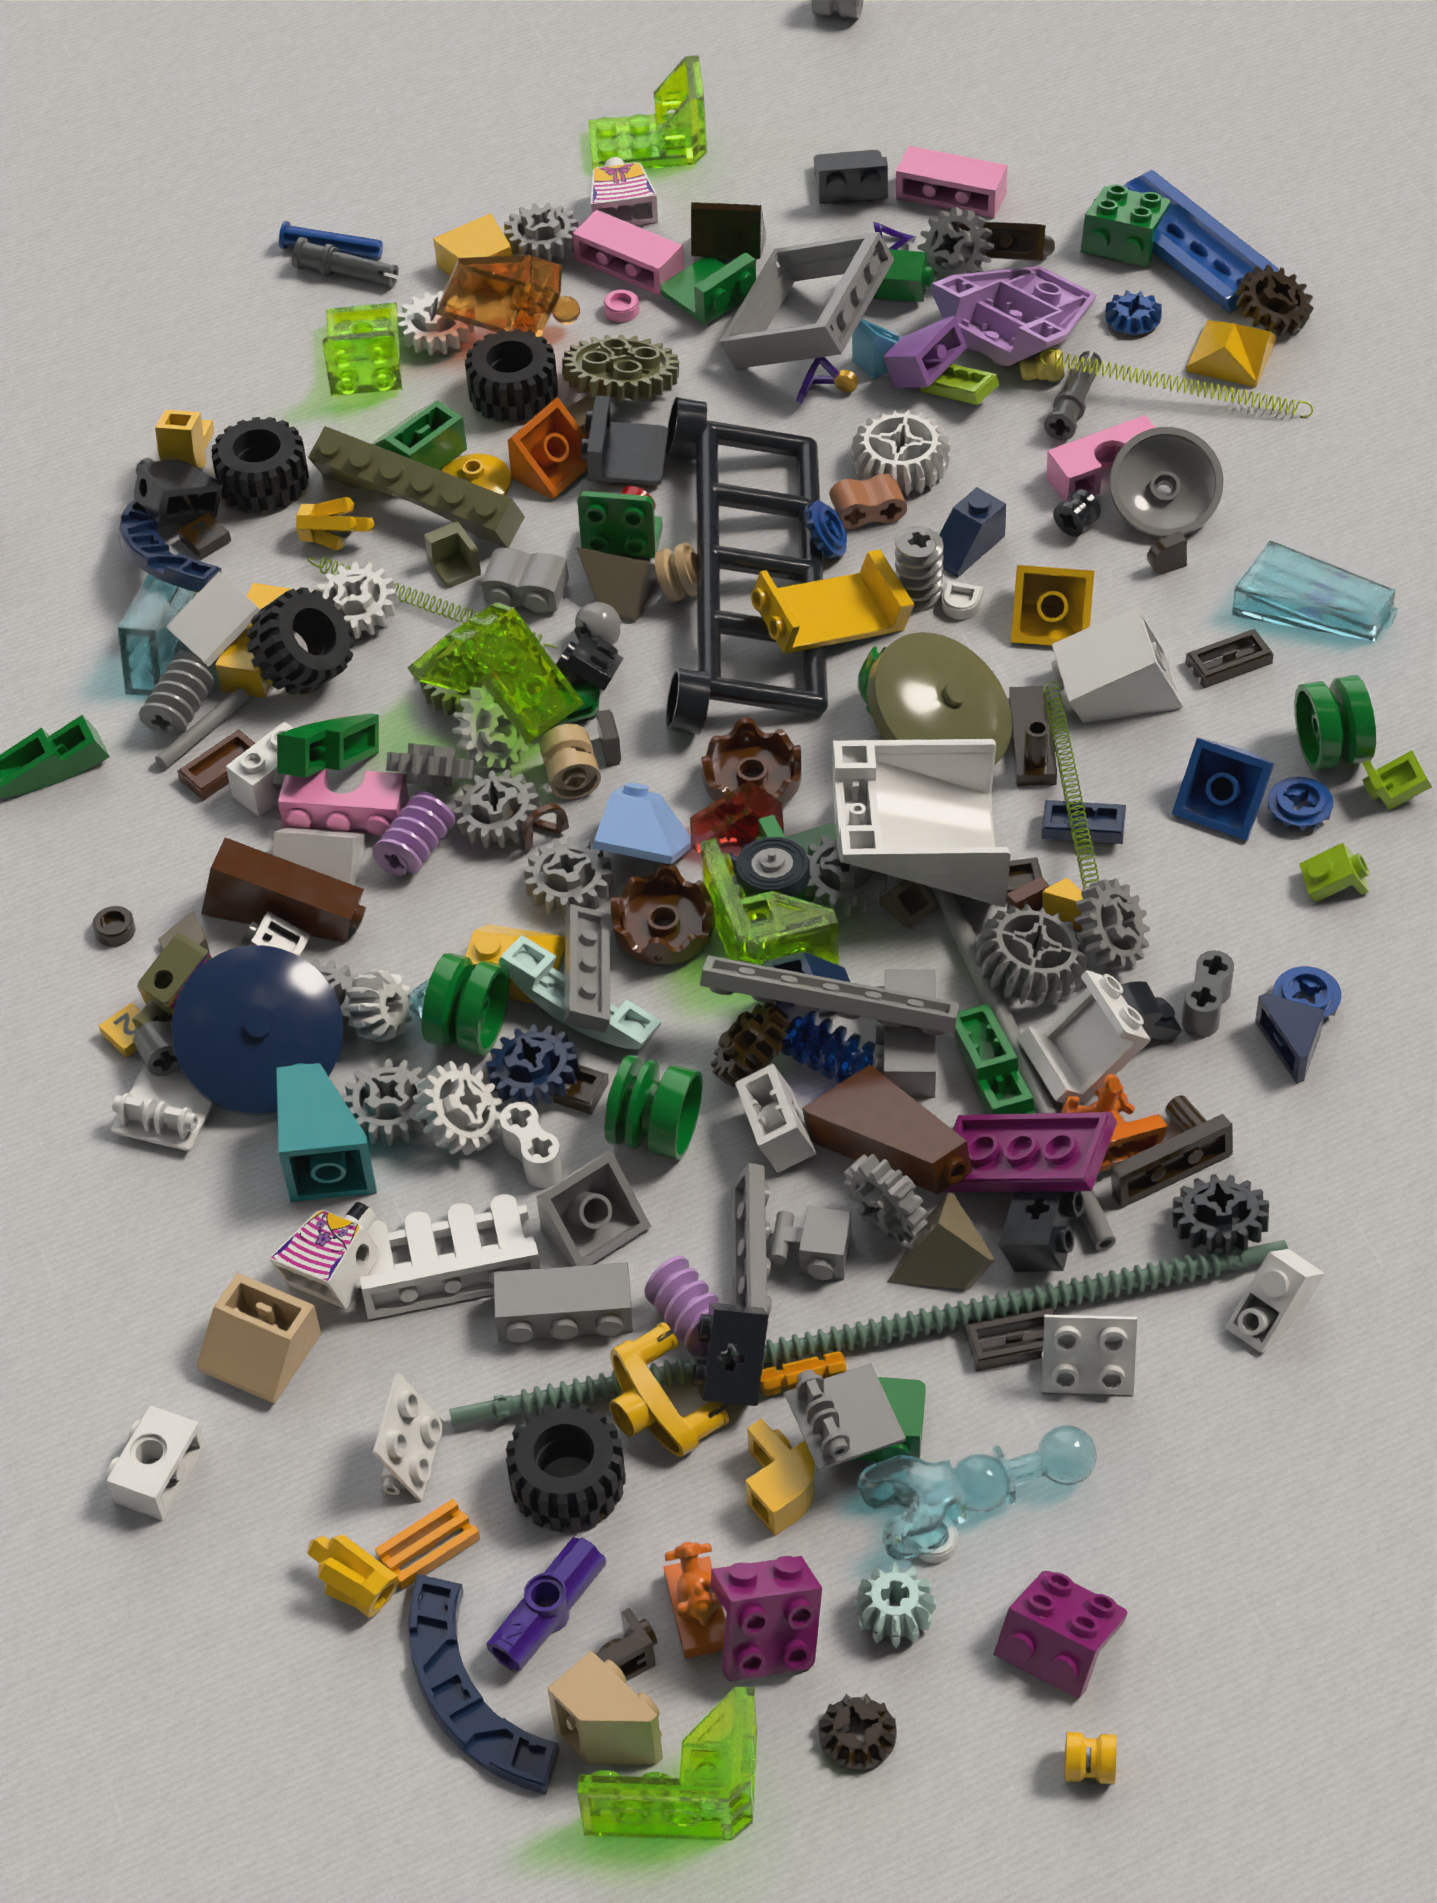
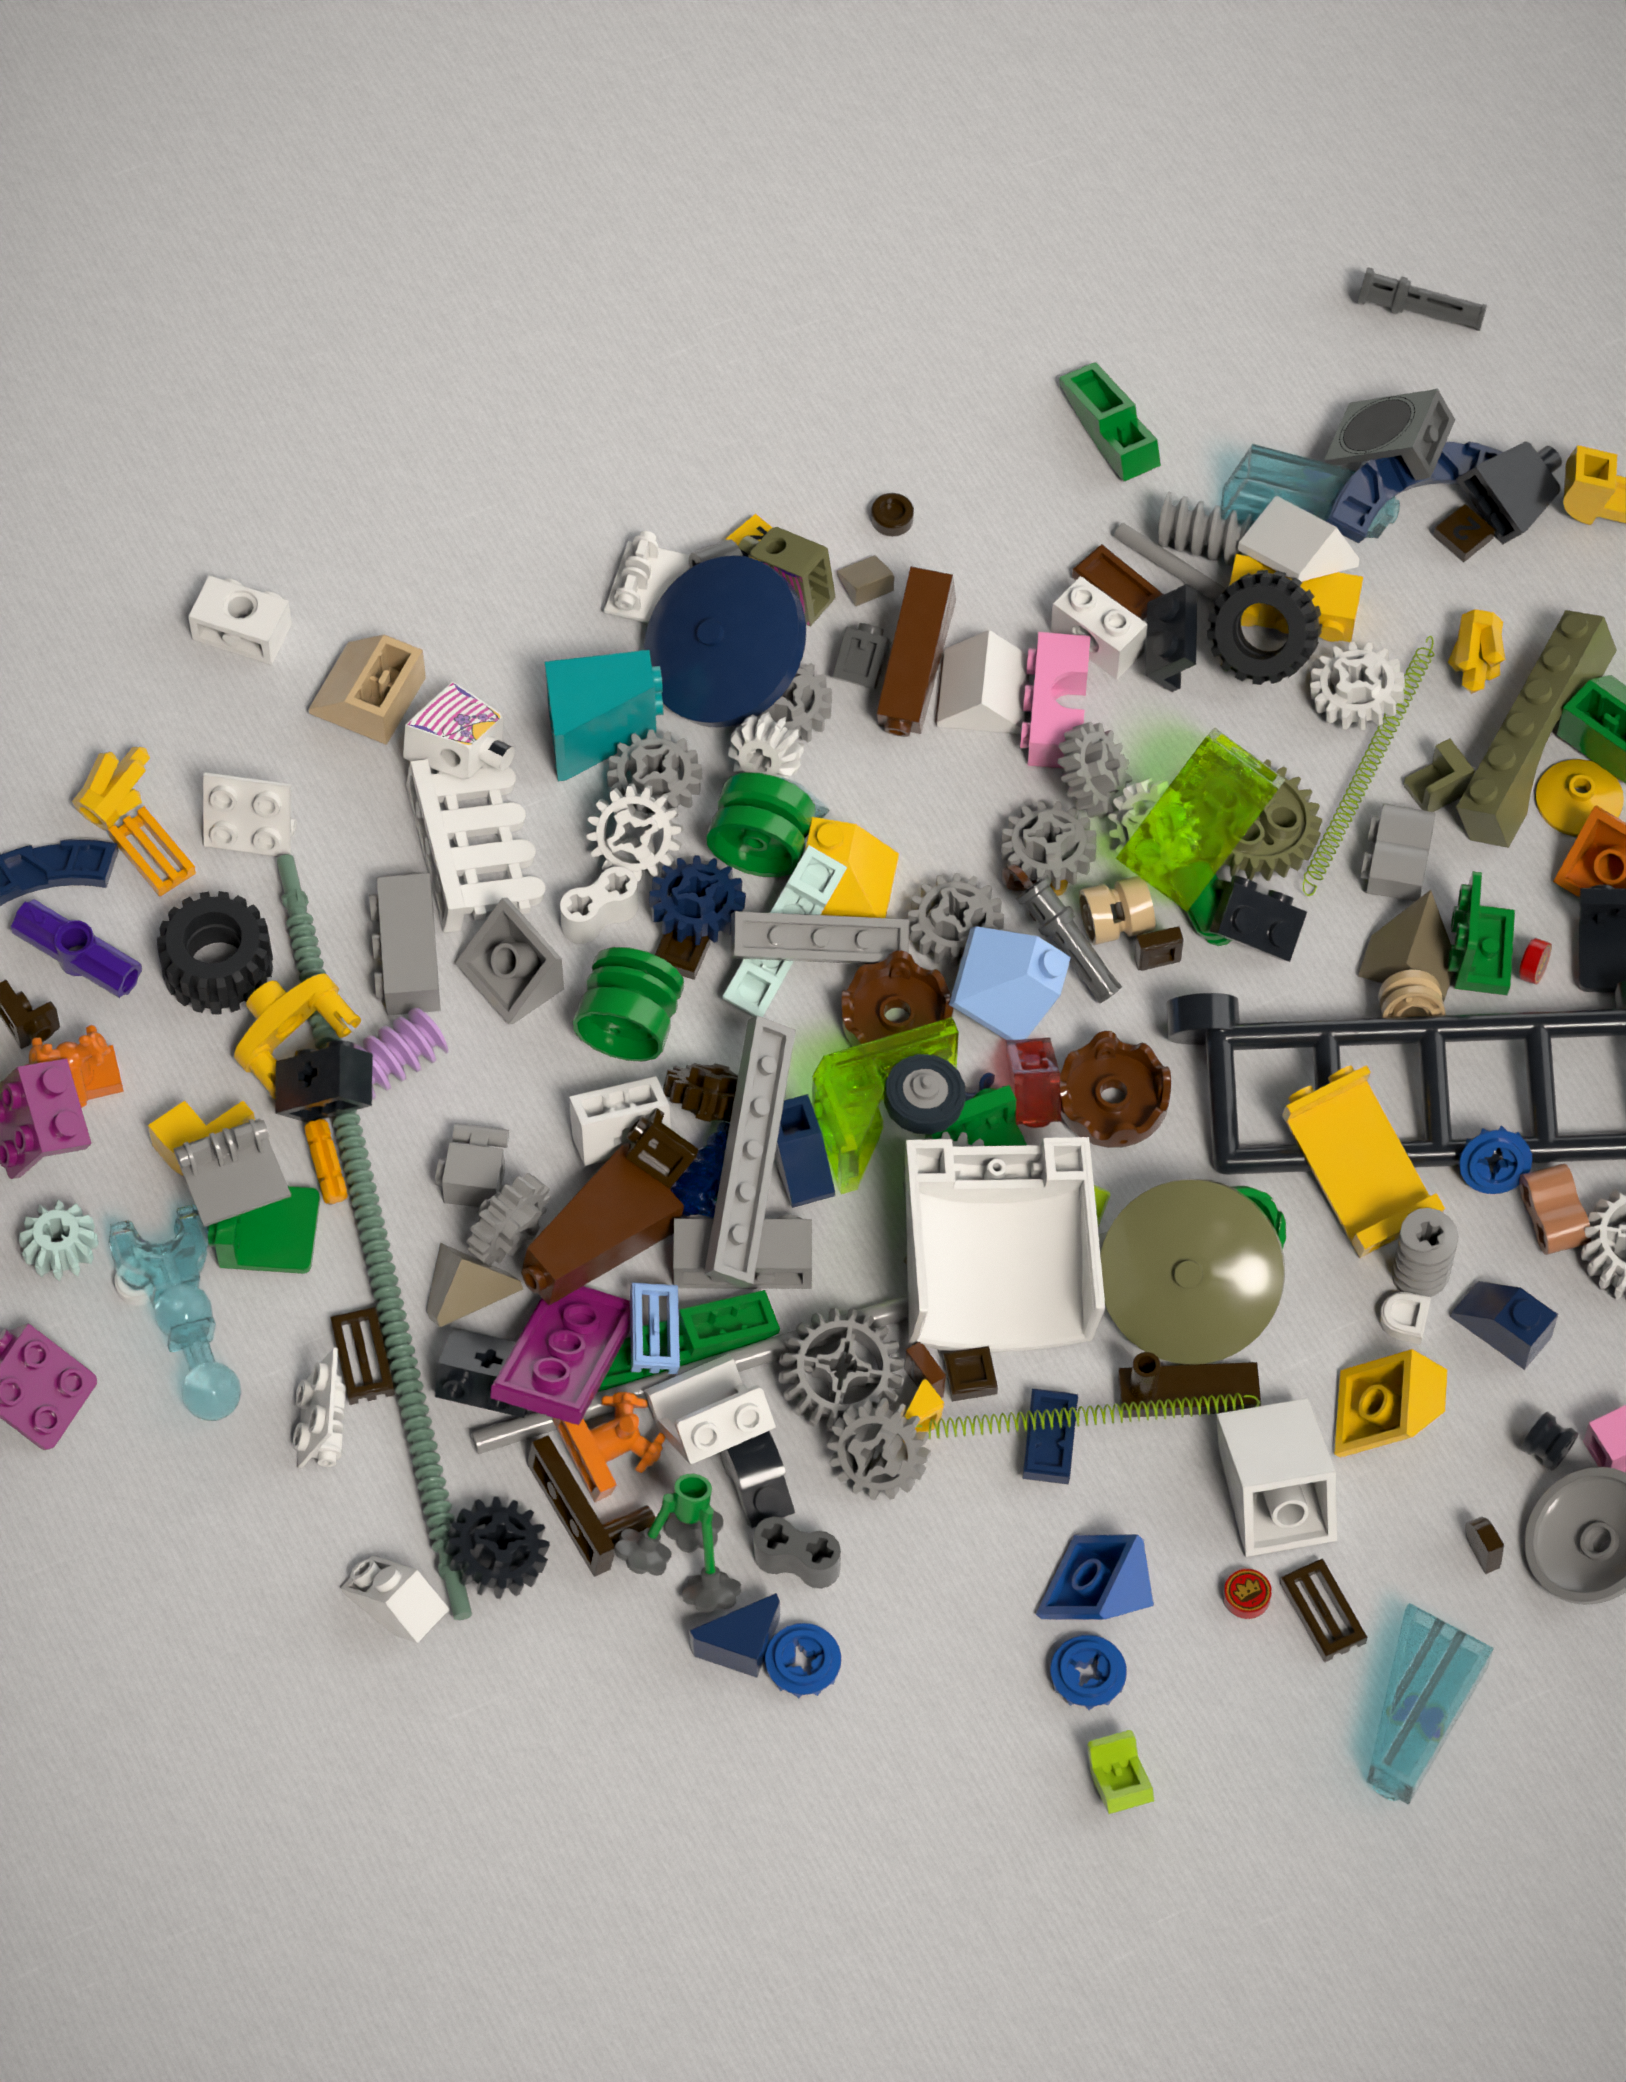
camera: 85 degrees right, 10 degrees up
(111, 554) = (1392, 426): none -> dark grey panel
(260, 464) = (1572, 542): black tyre -> none
(290, 704) = (1171, 636): none -> black bracket
(327, 745) = (1114, 669): green slope -> none
(413, 834) = (1008, 771): lavender piece -> none
(590, 788) = (1058, 923): none -> dark grey pin
(598, 622) = (1329, 929): light grey piece -> none
(749, 1238) = (446, 1109): light grey plate -> none
(815, 1074) = (659, 1149): none -> dark brown bracket
(994, 1090) = (654, 1360): none -> light blue tile
(1219, 703) = (1247, 1593): none -> tile
(1245, 1060) = (694, 1527): none -> dark grey plant
(1333, 872) = (978, 1702): lime bracket -> none
(1335, 722) = (1186, 1699): green wheel -> none

